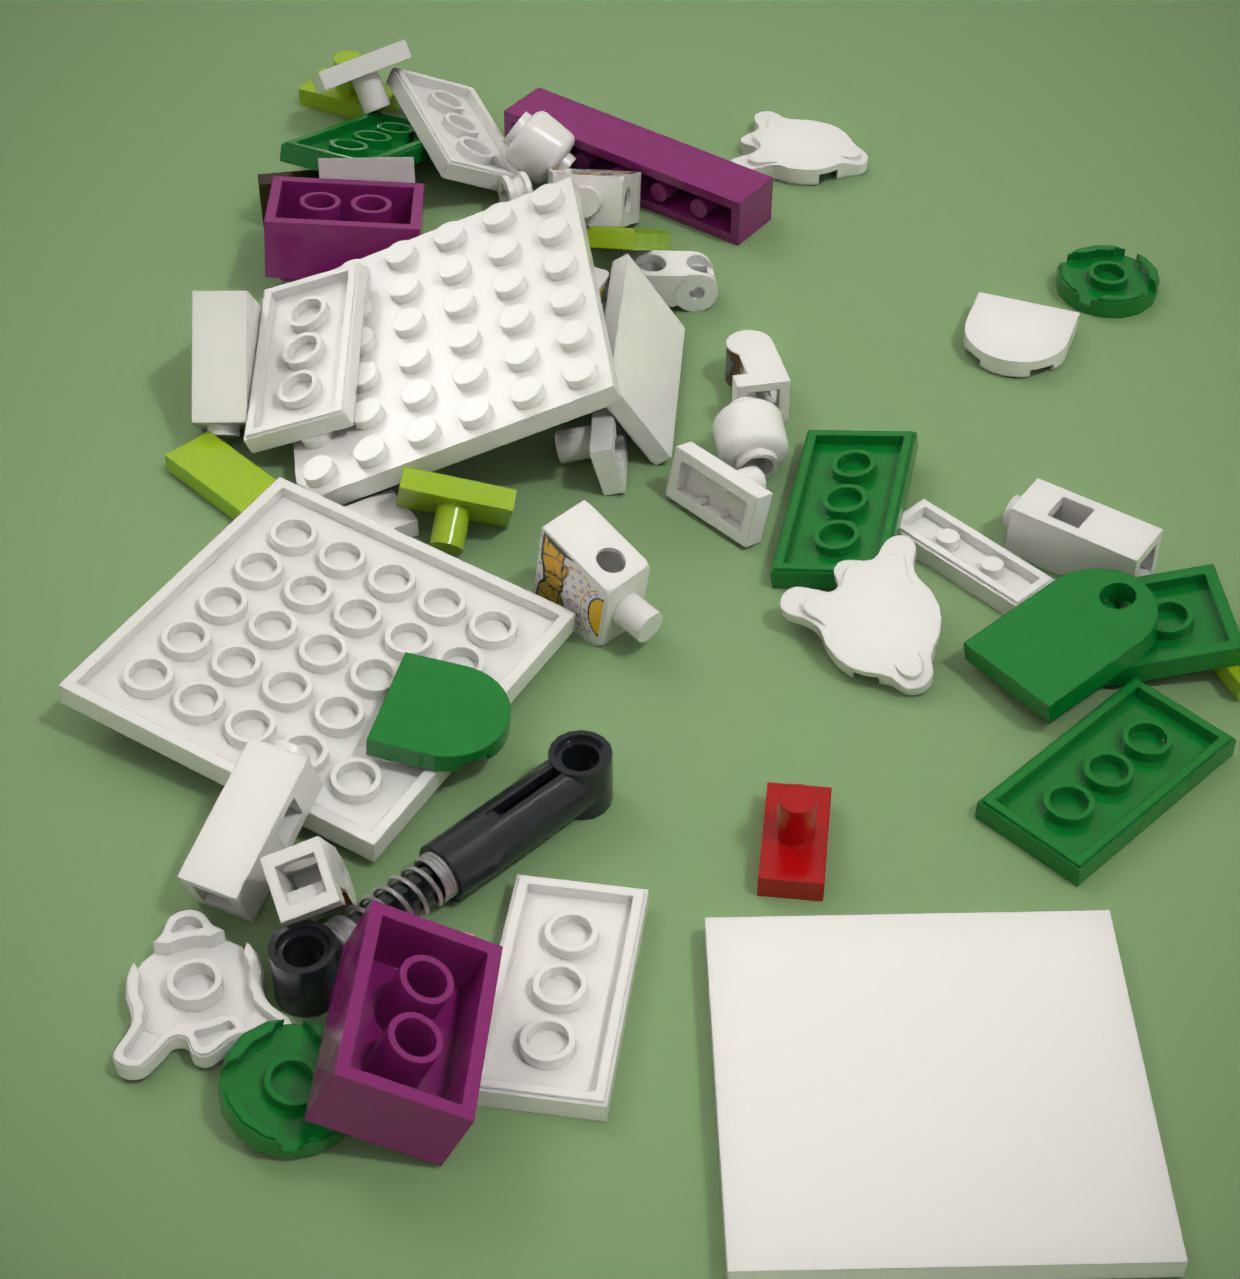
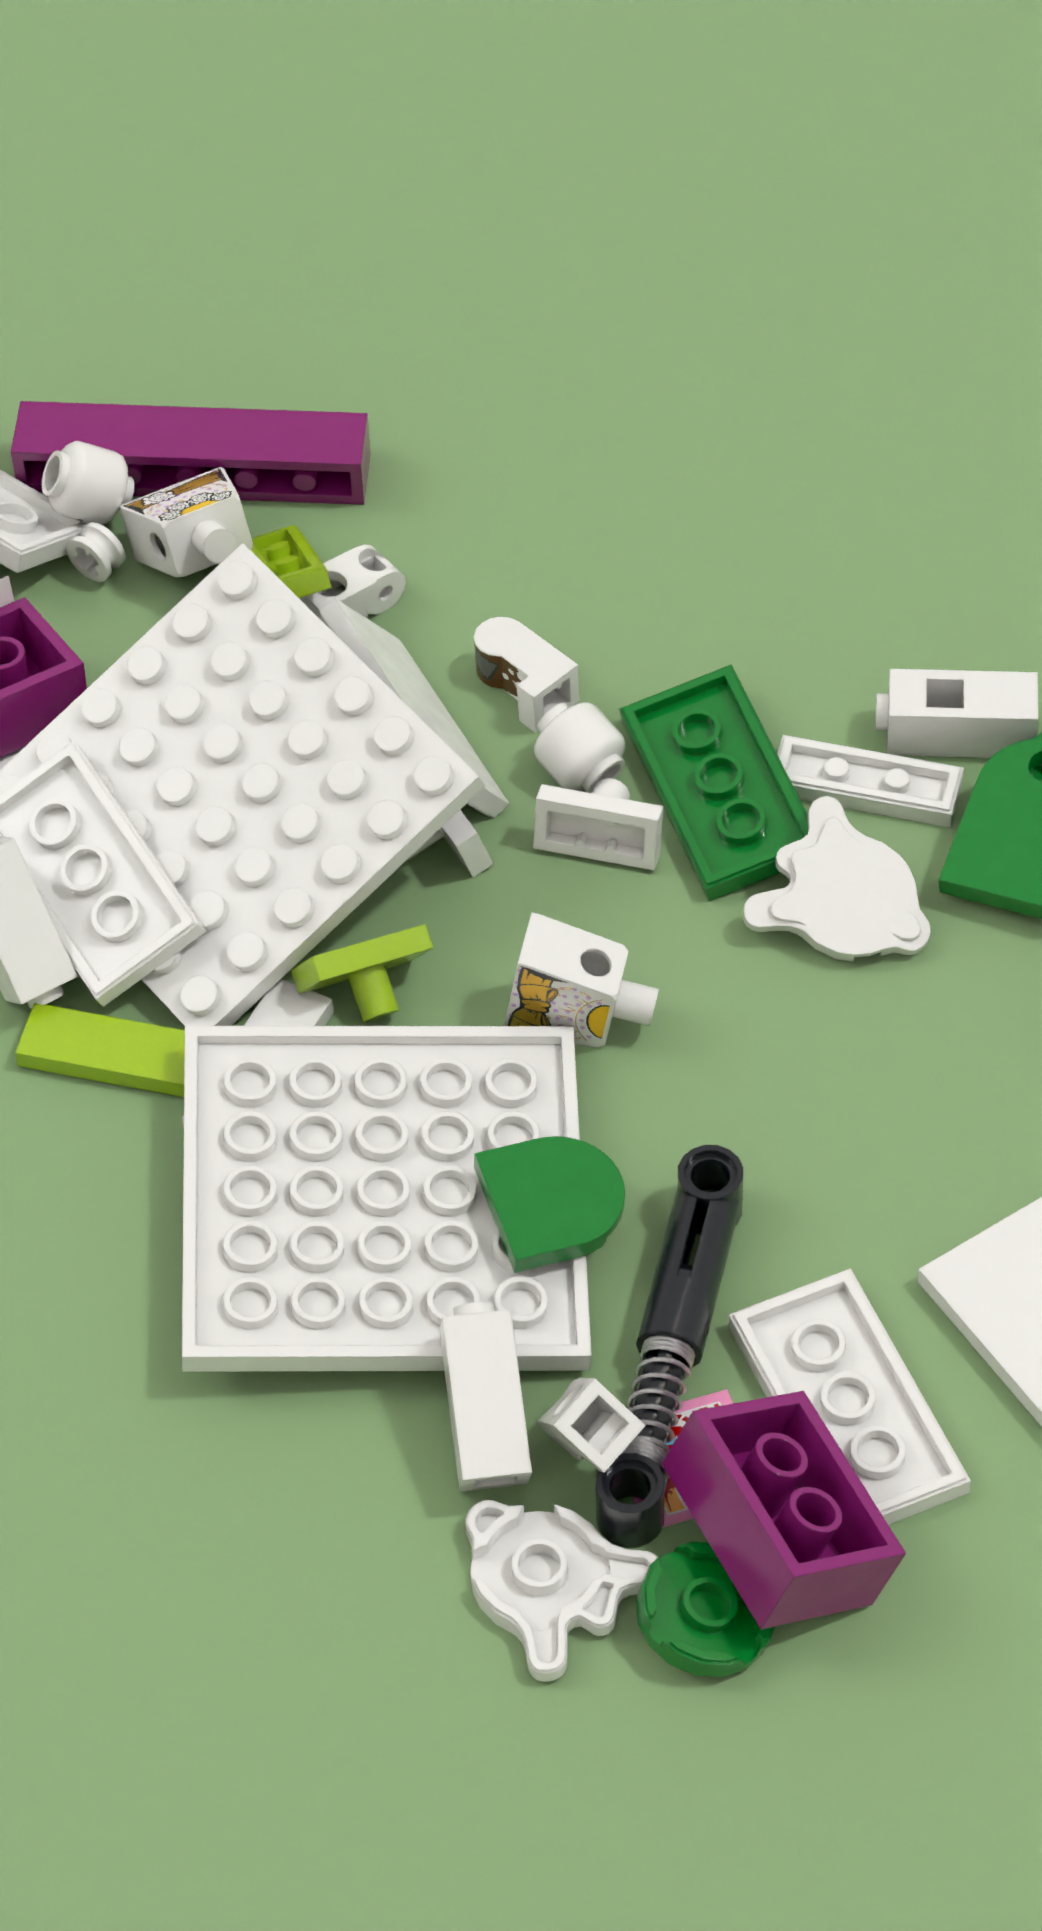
camera: 30 degrees left, 10 degrees up
(794, 842) = (931, 1154): red tile -> none
(799, 150) = (333, 350): white tile -> none
(1018, 335) = (727, 492): white tile -> none
(1106, 282) = (765, 382): green tile -> none

